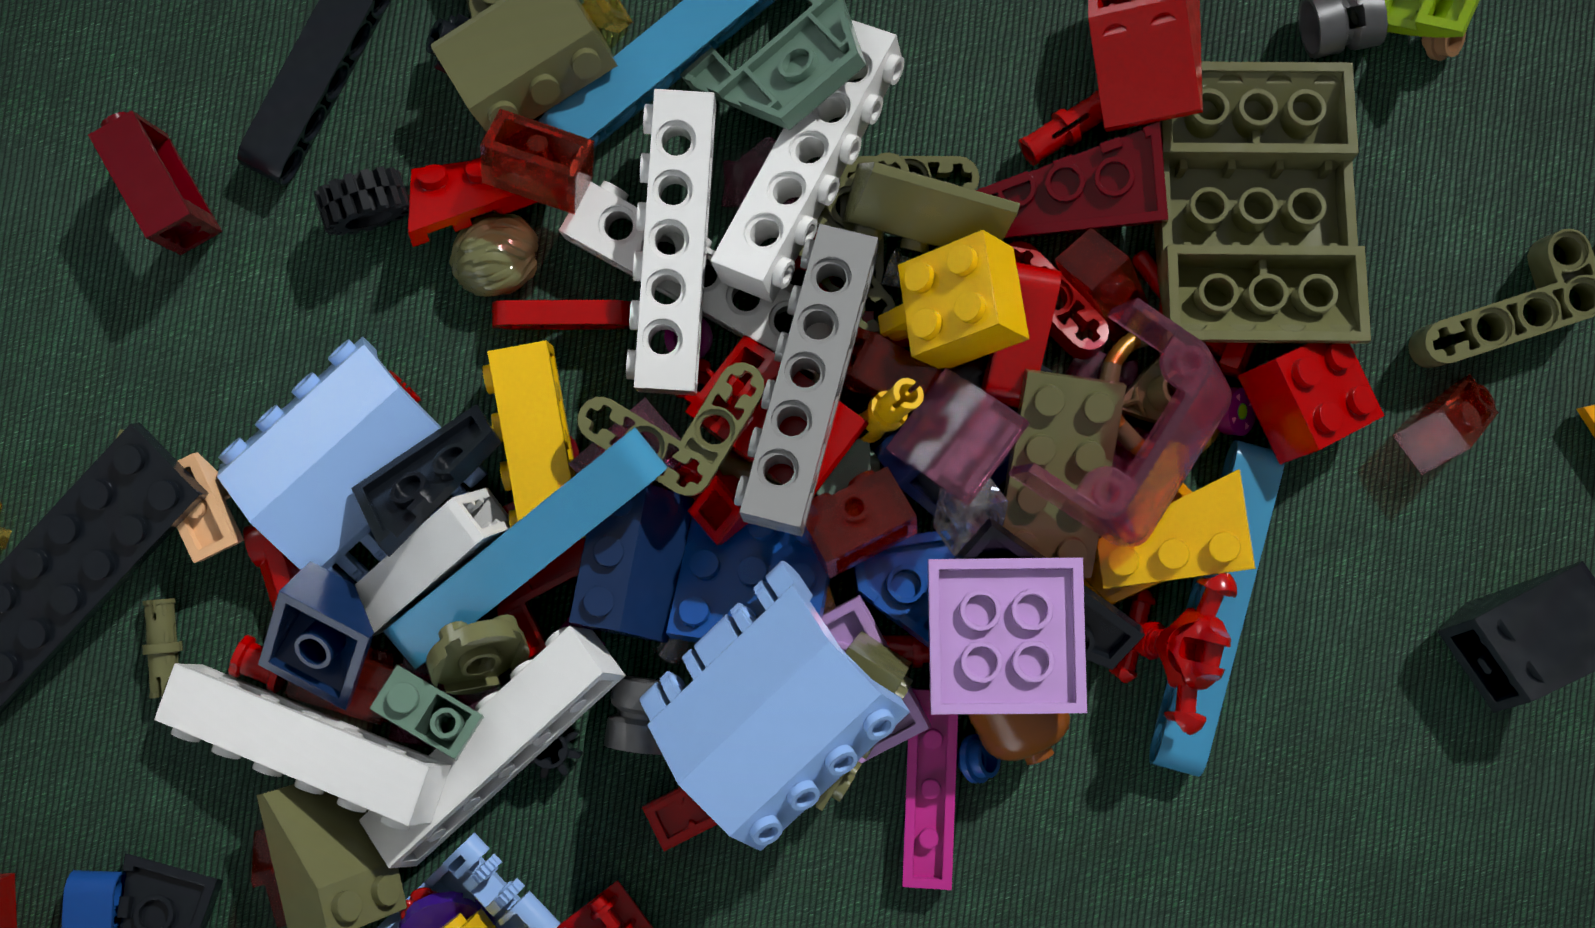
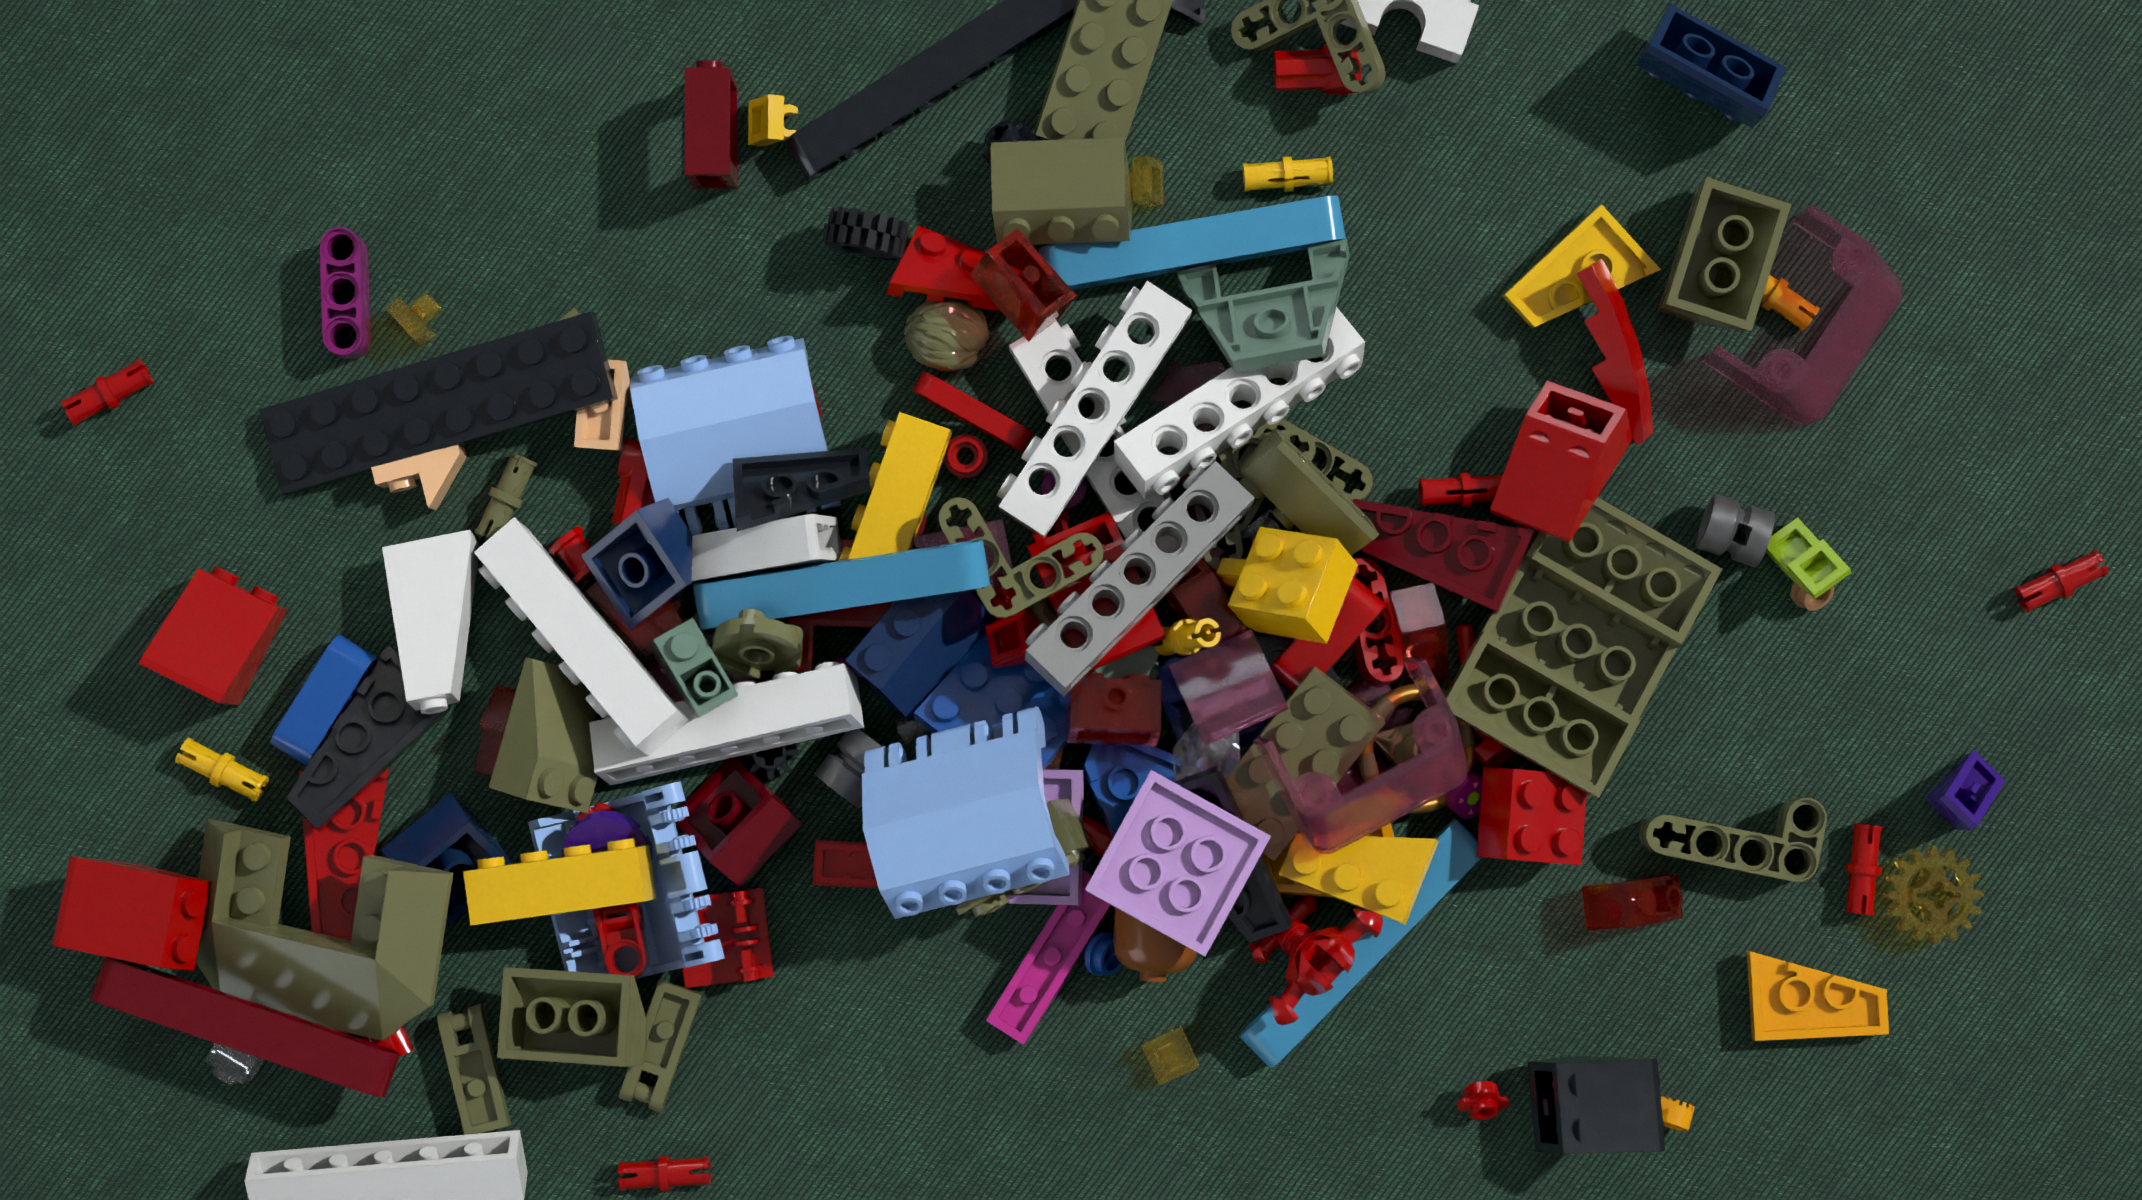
camera: 30 degrees right, 0 degrees up
(73, 663) = (434, 468): none -> light nougat slope
(149, 804) = (431, 610): none -> white slope
(210, 149) = (767, 120): none -> yellow tile
(556, 832) = (737, 821): none -> dark red slope
(572, 347) = (965, 441): none -> red plate
(1094, 817) = (1170, 1055): none -> clear yellow tile
(1414, 692) = (1482, 1100): none -> red plate

